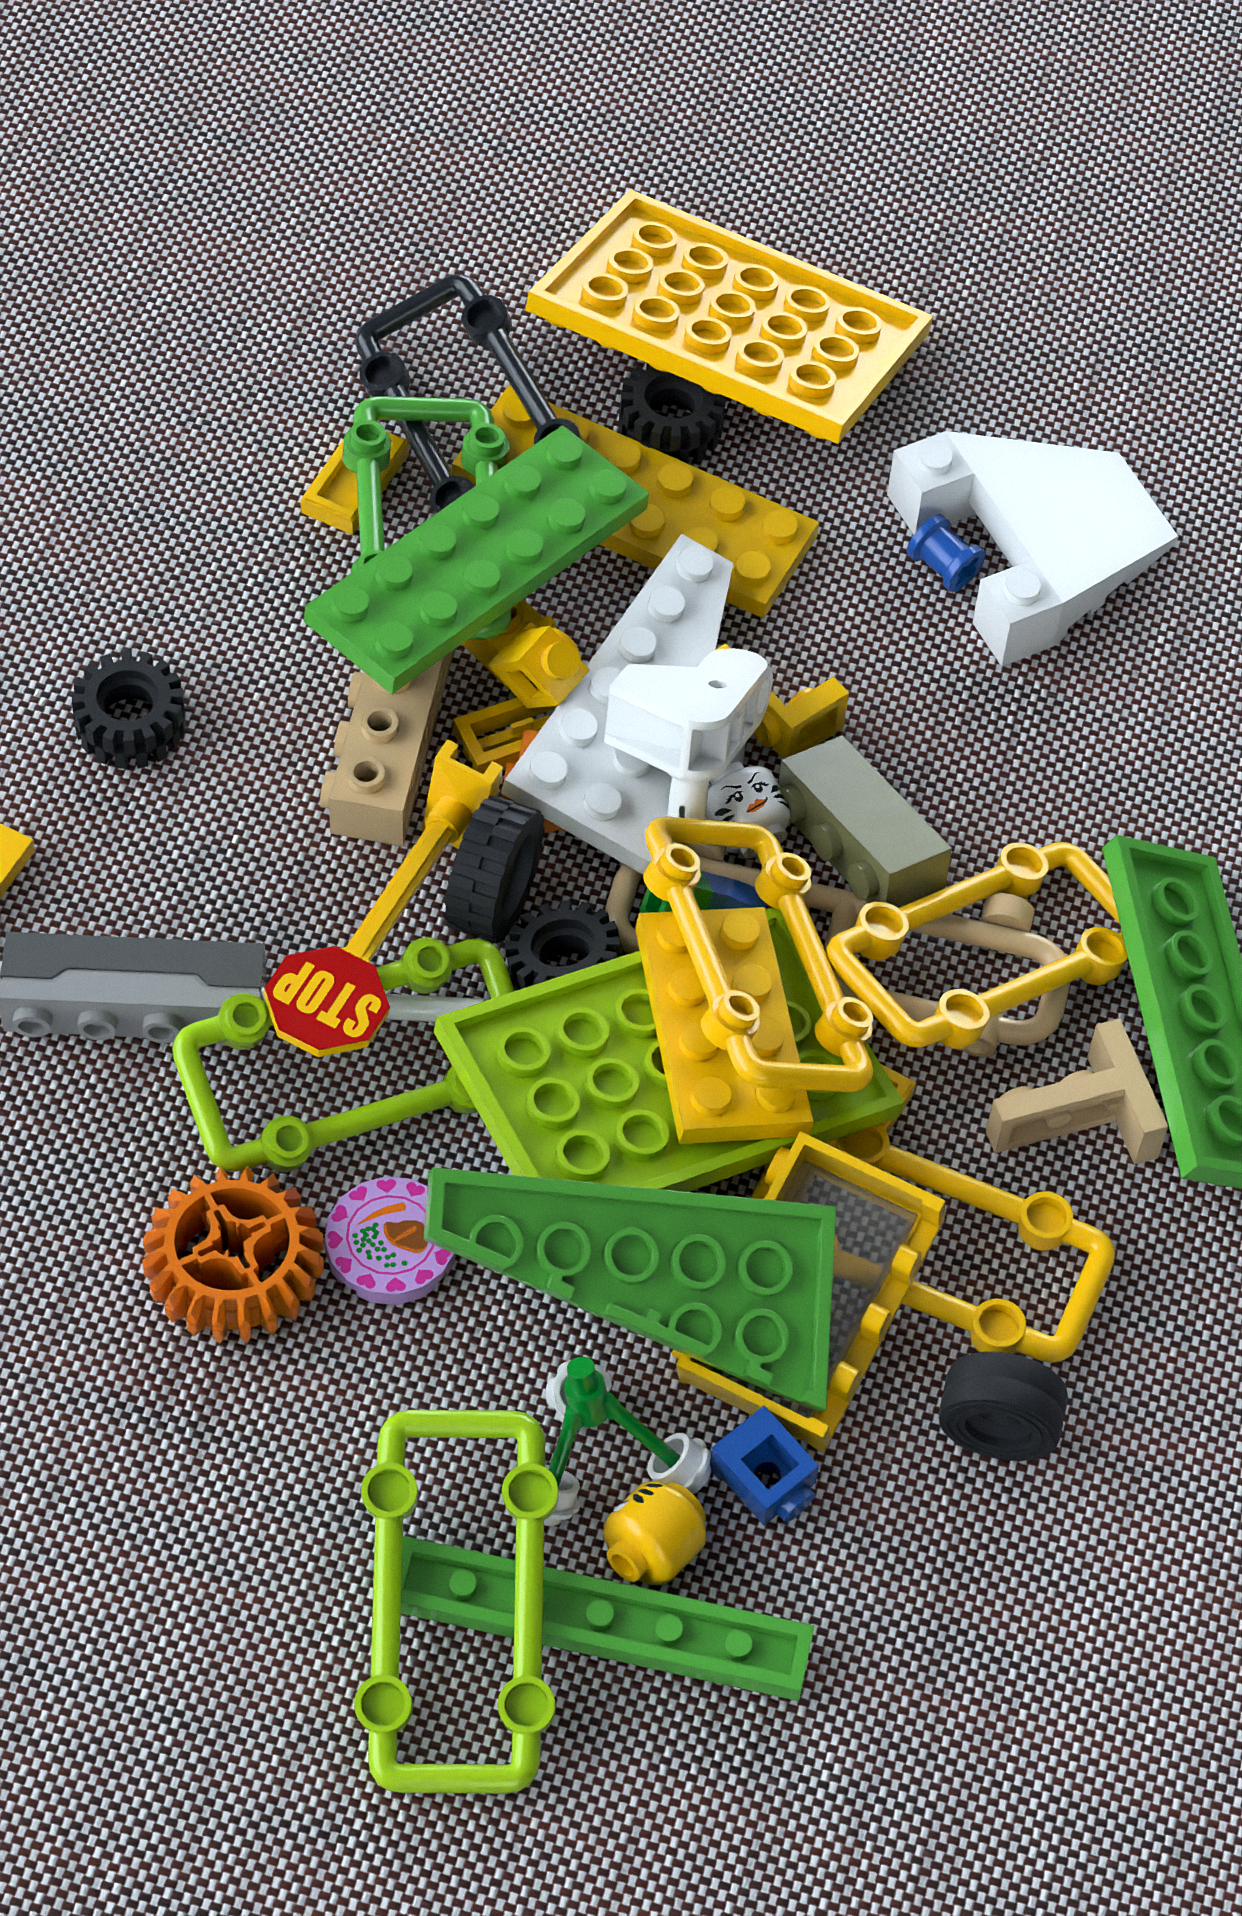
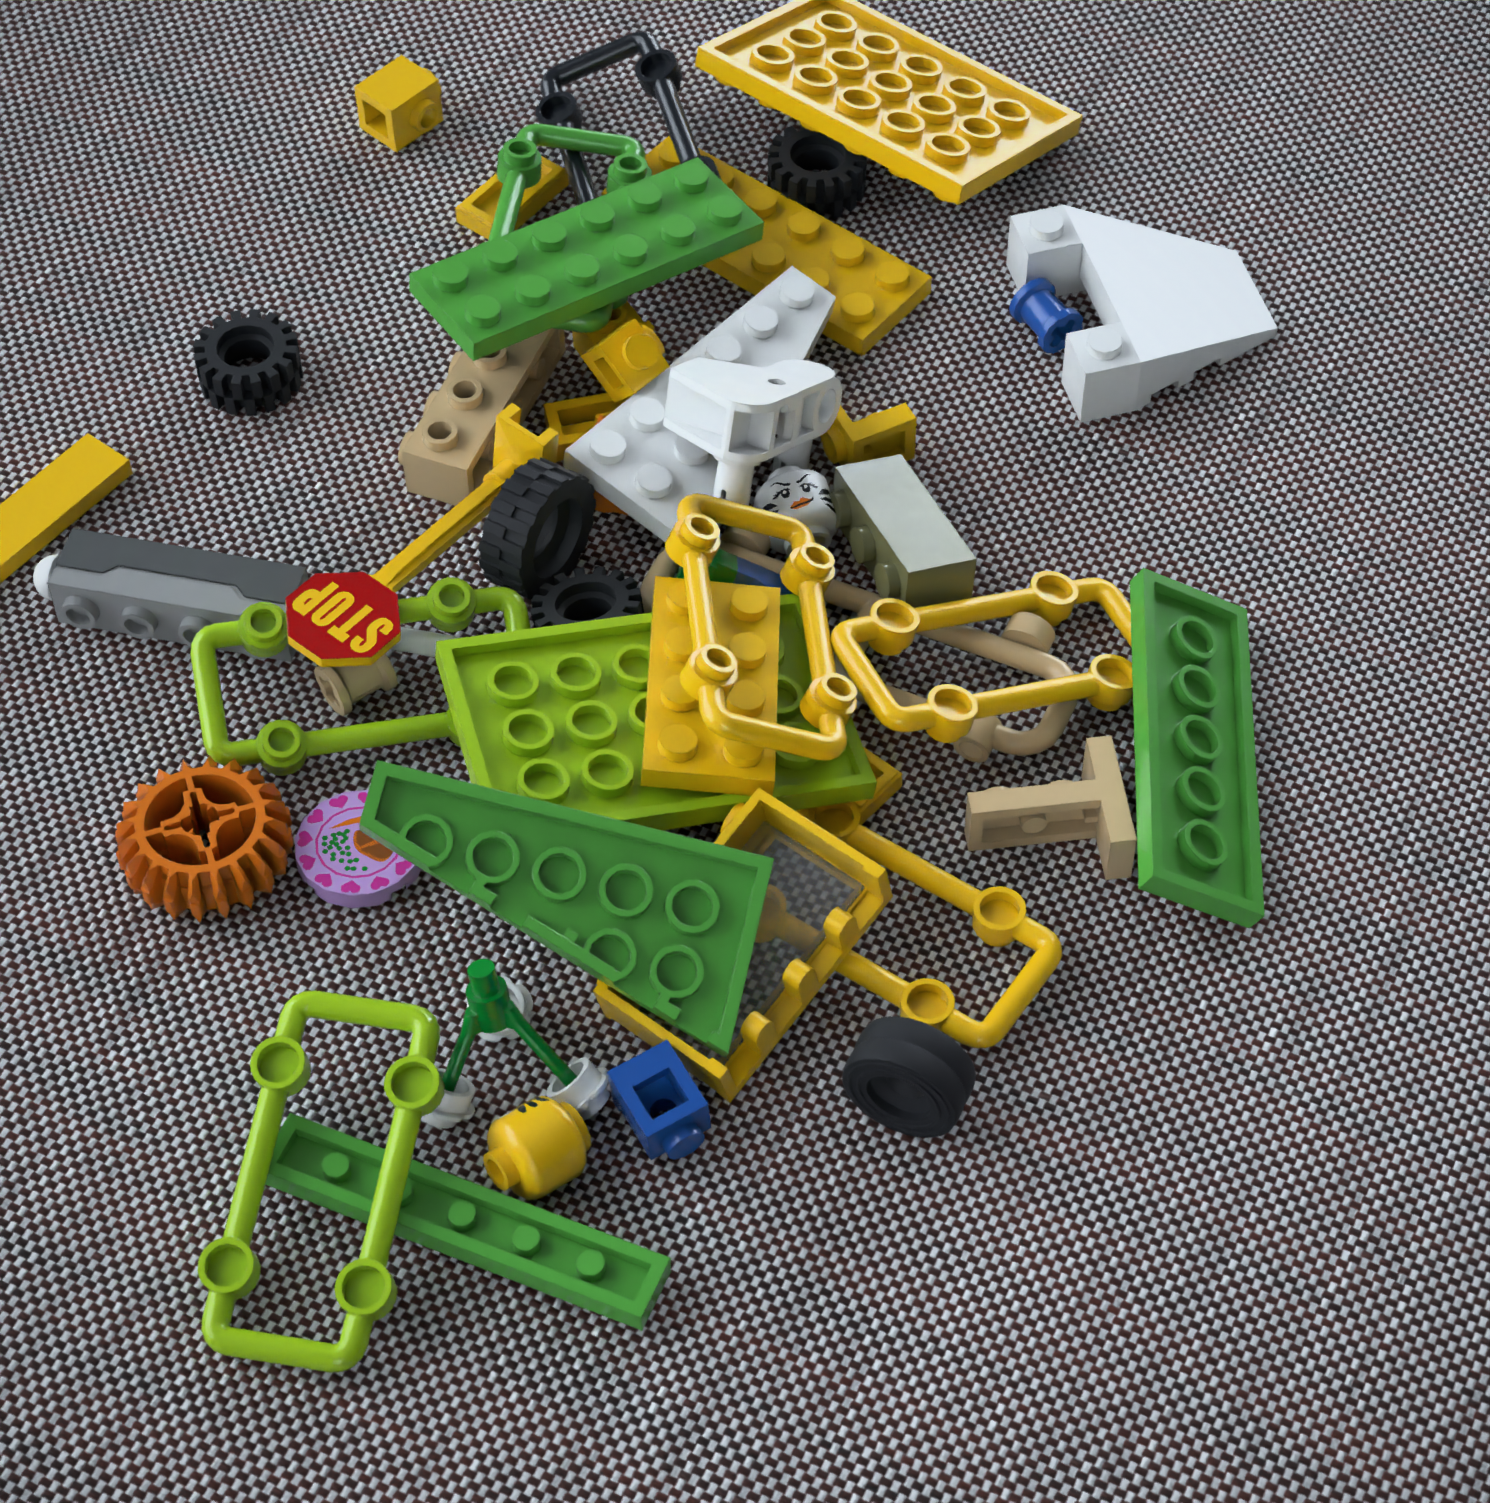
camera: 15 degrees right, 5 degrees down
(210, 383) = (399, 103): none -> yellow brick
(331, 1071) = (350, 684): none -> tan bush

